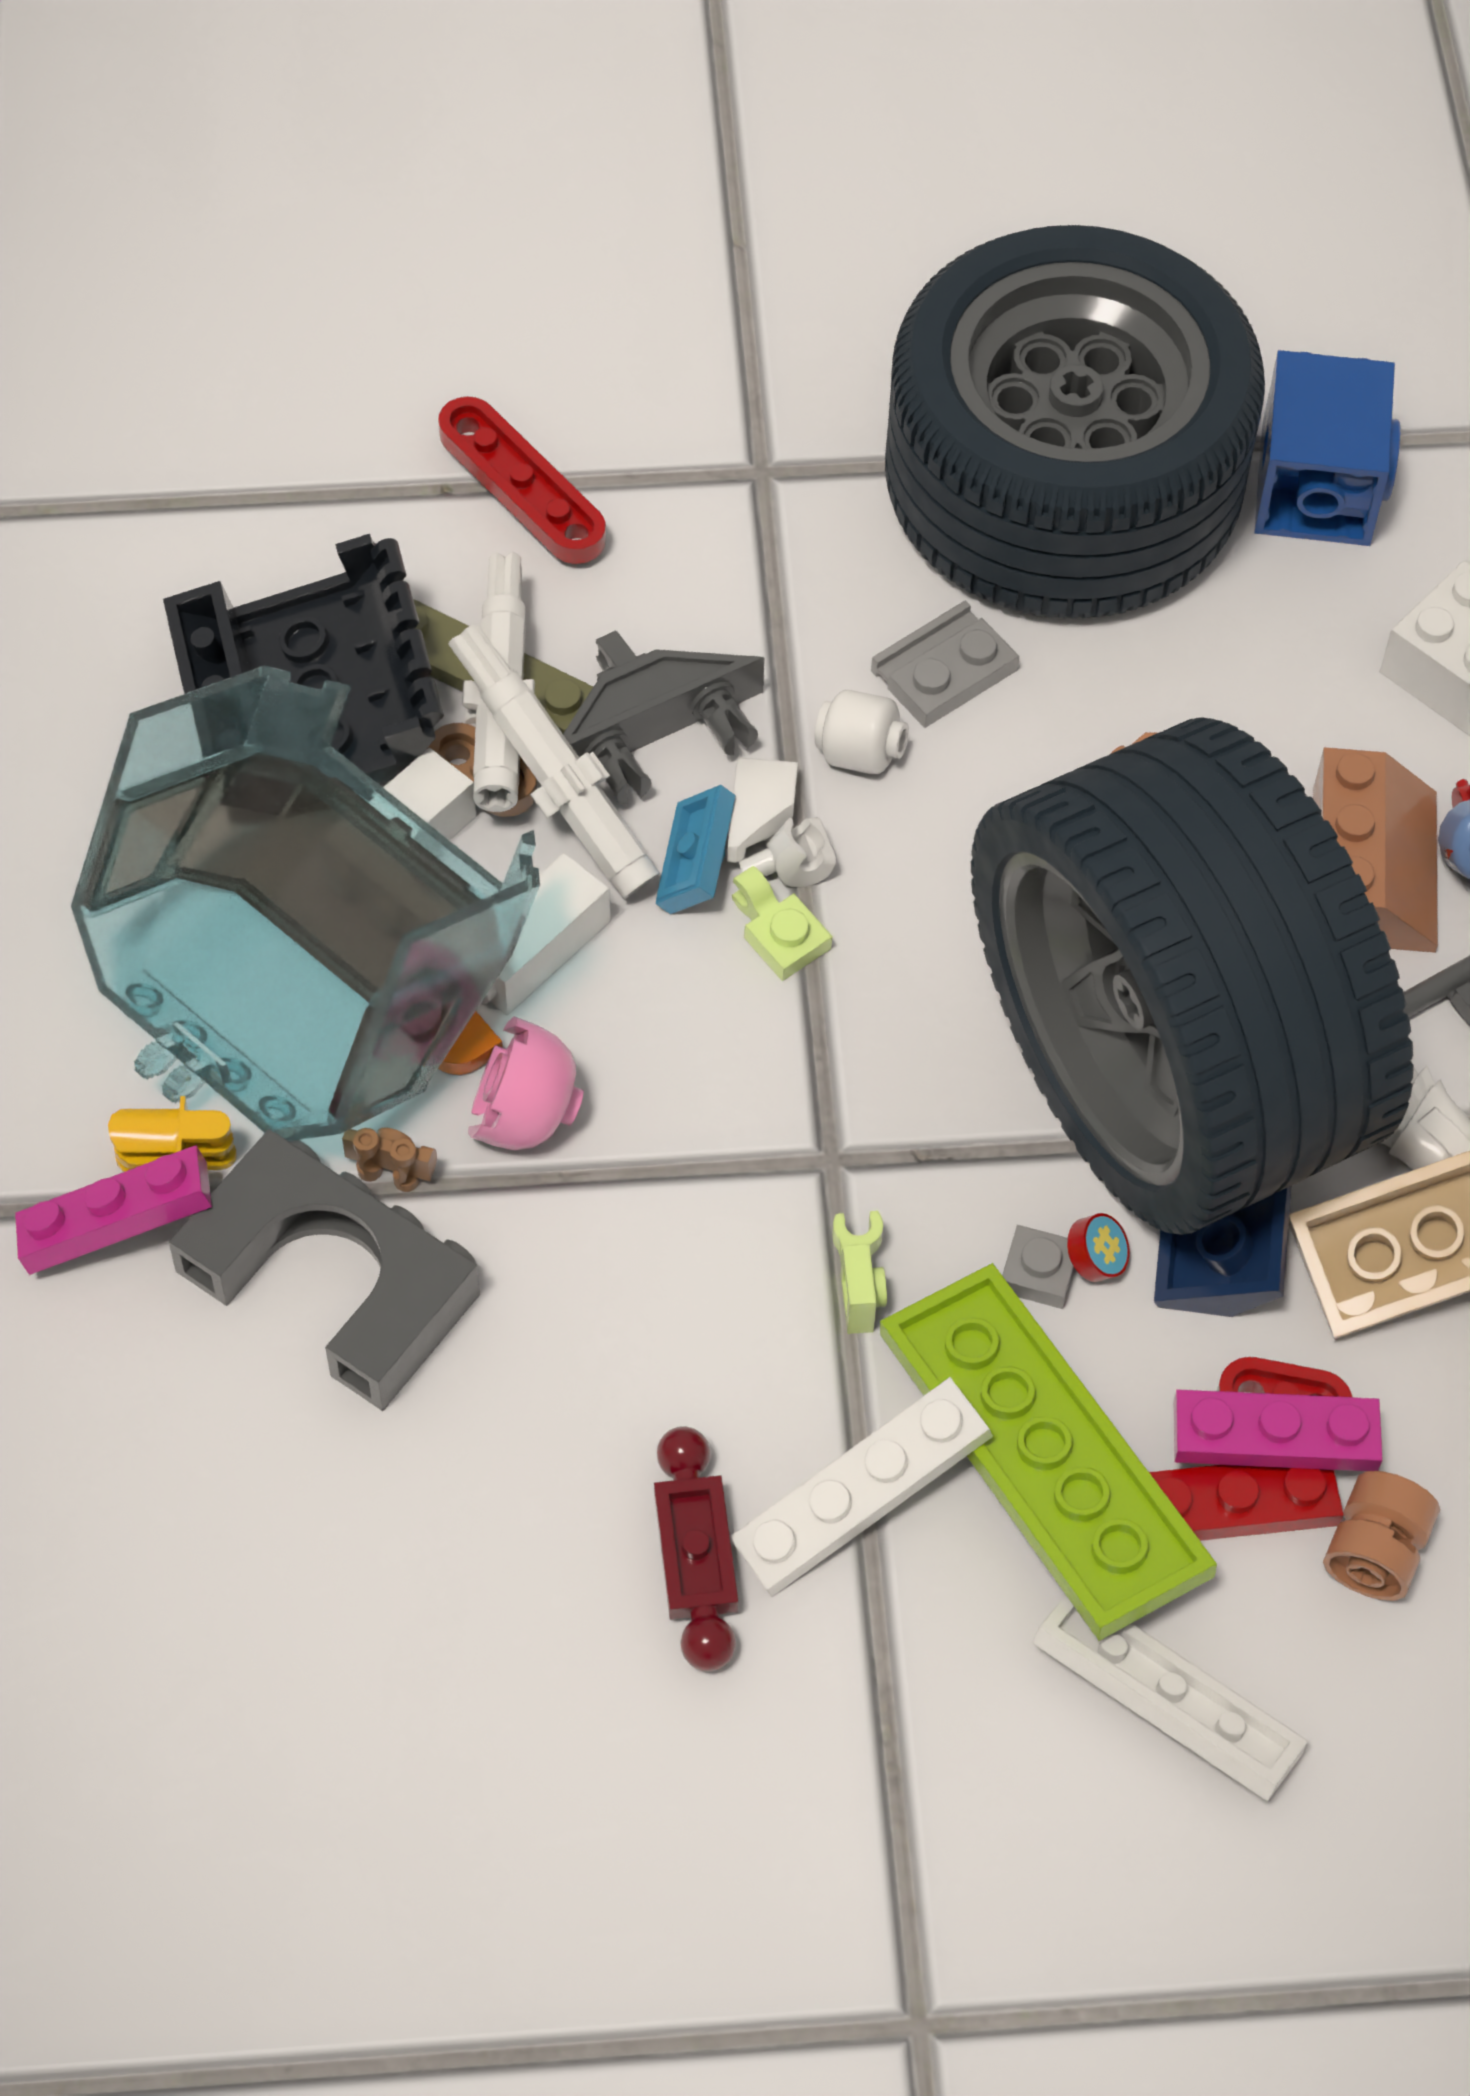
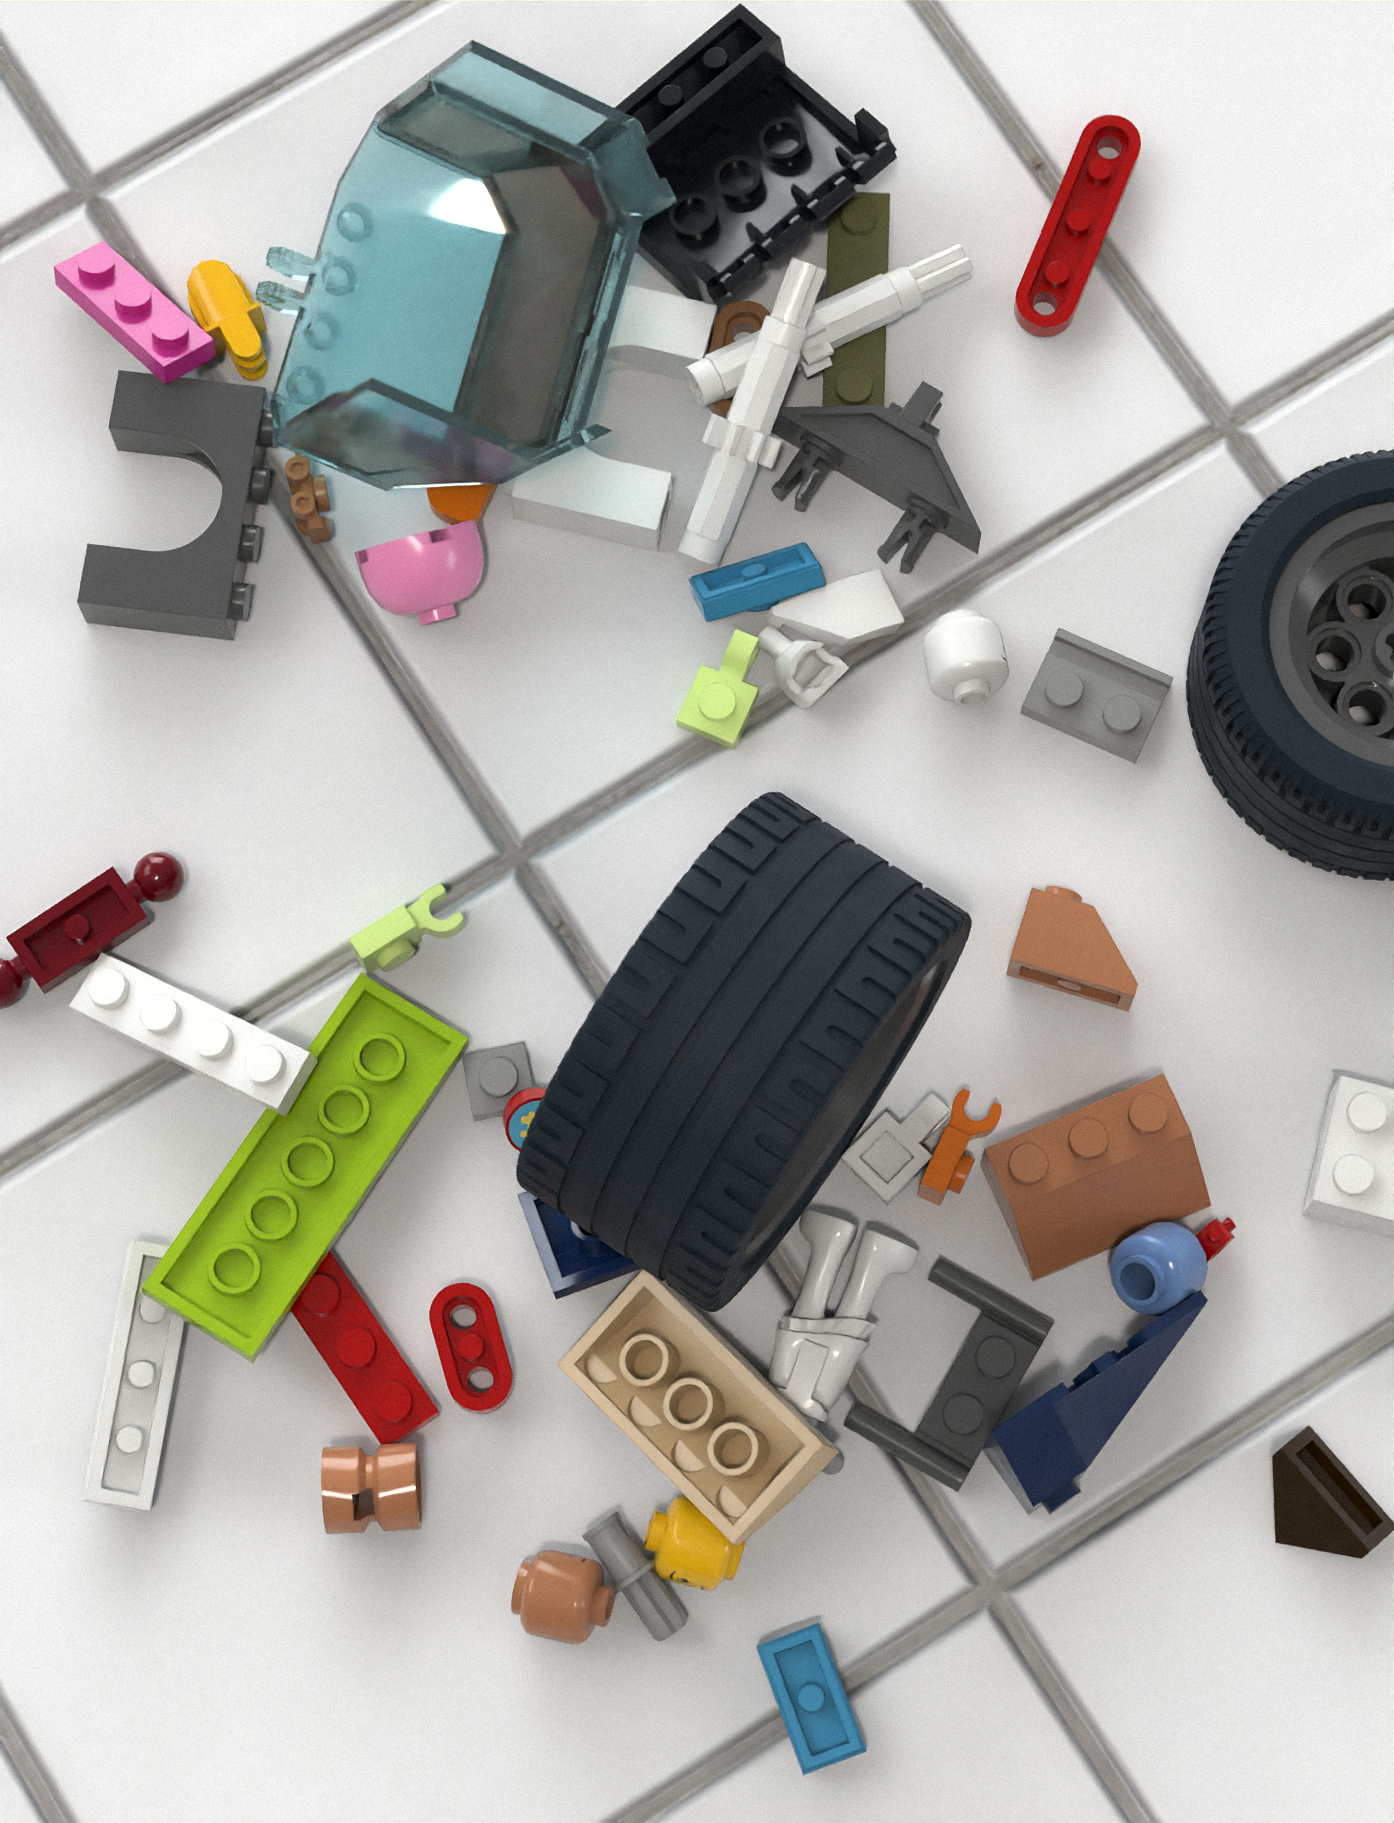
camera: 65 degrees right, 15 degrees up
(1277, 1430) = (422, 1353): dark pink plate -> none

